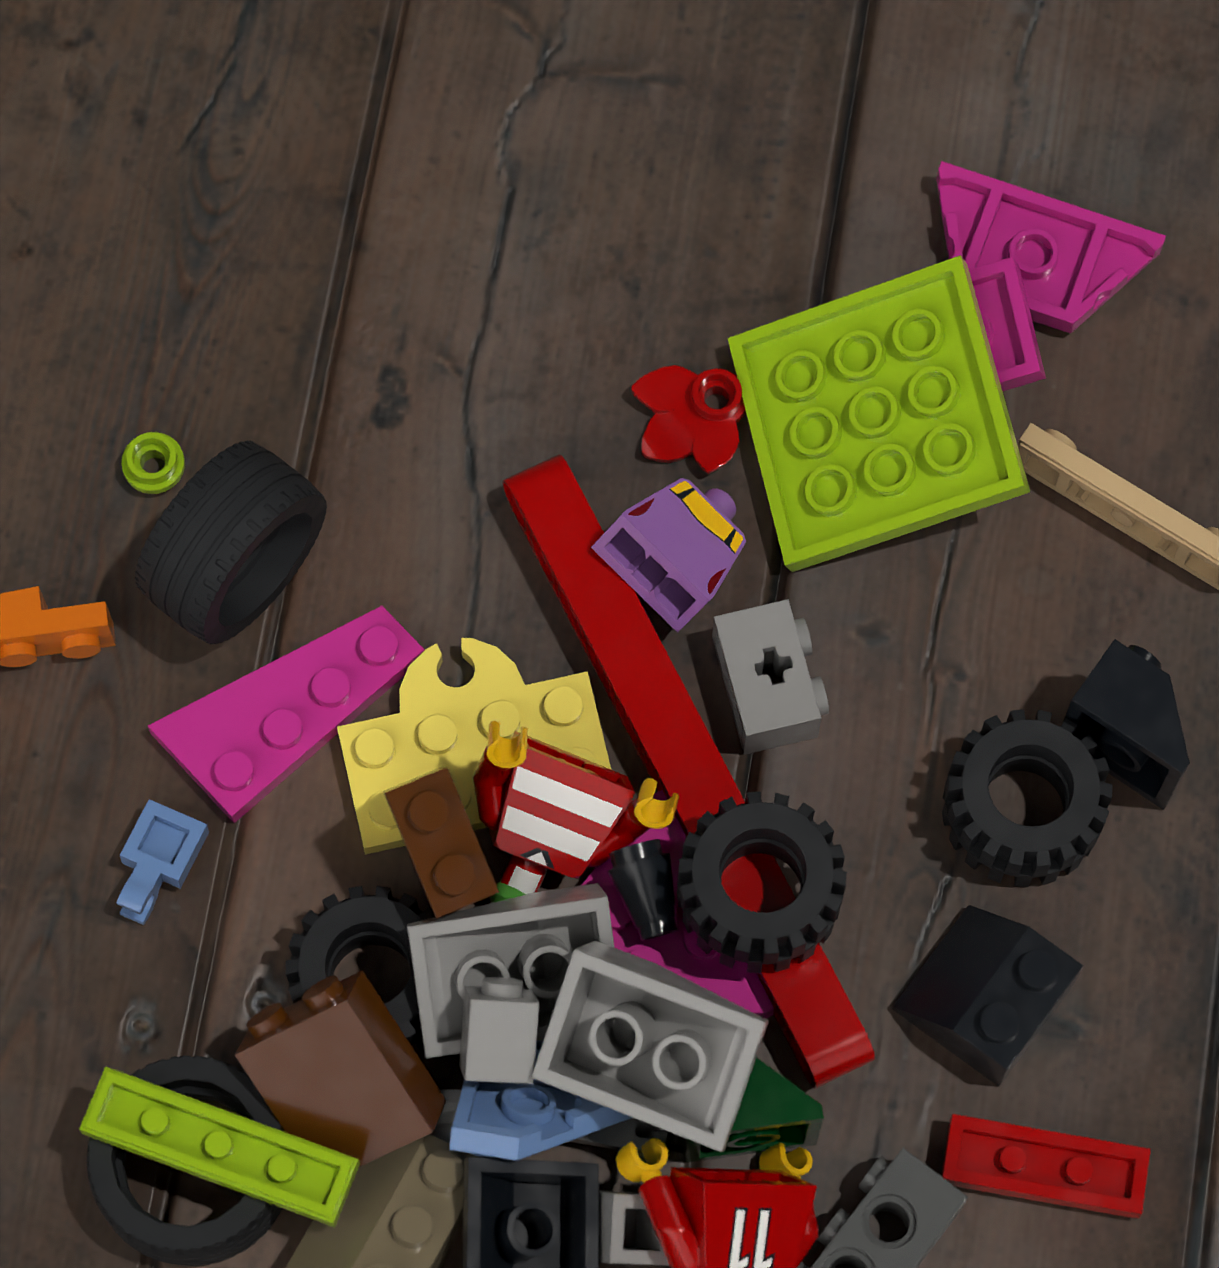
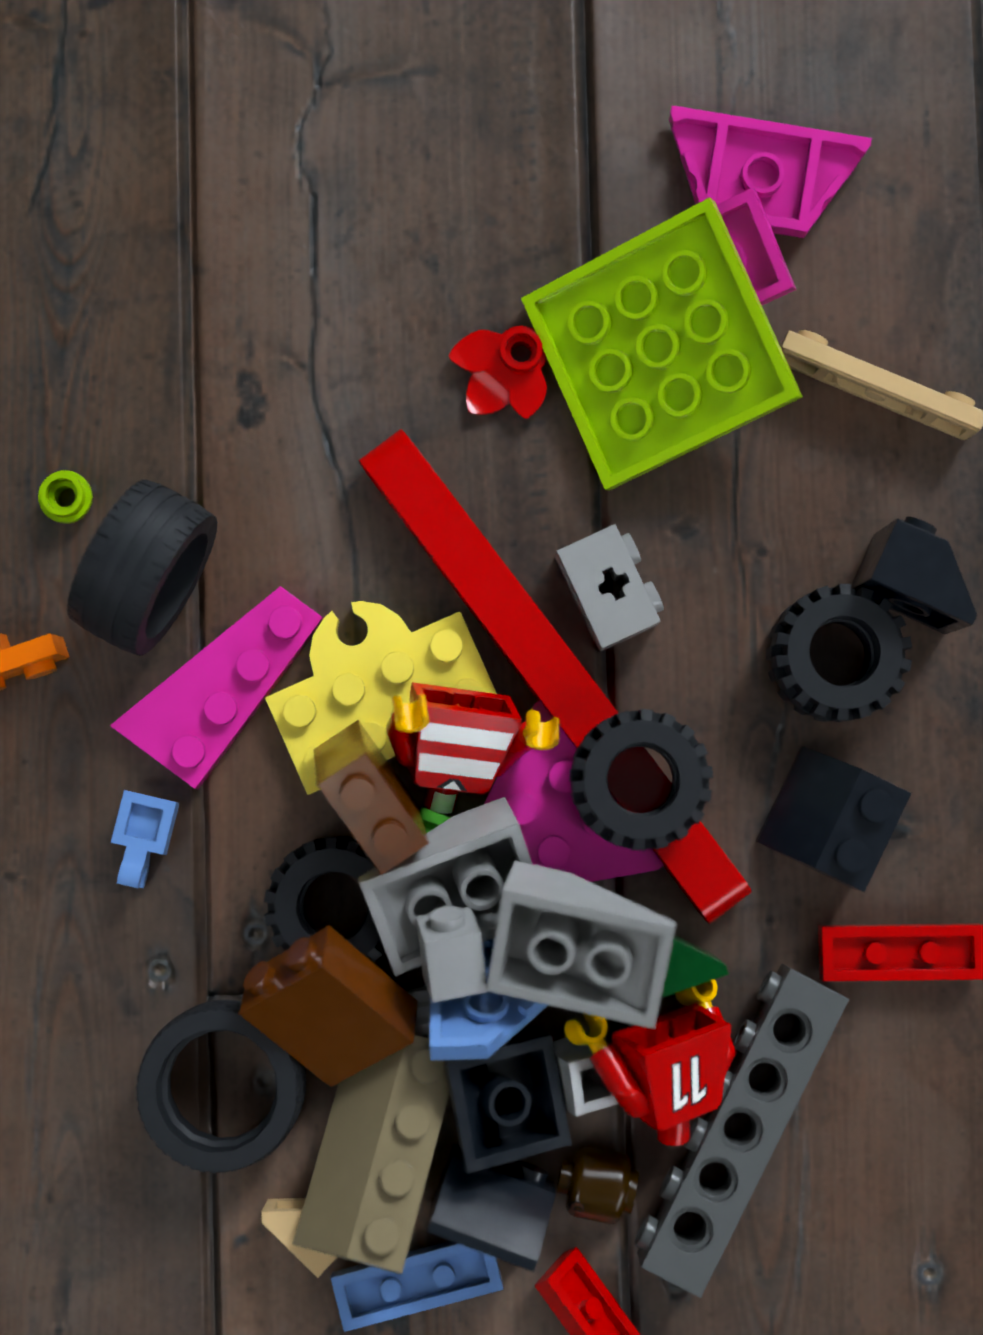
camera: 10 degrees left, 15 degrees up
(220, 1146) = (242, 1084): lime tile -> none
(646, 887) = (544, 793): black cone -> none
(674, 548) = (515, 497): medium lavender torso -> none

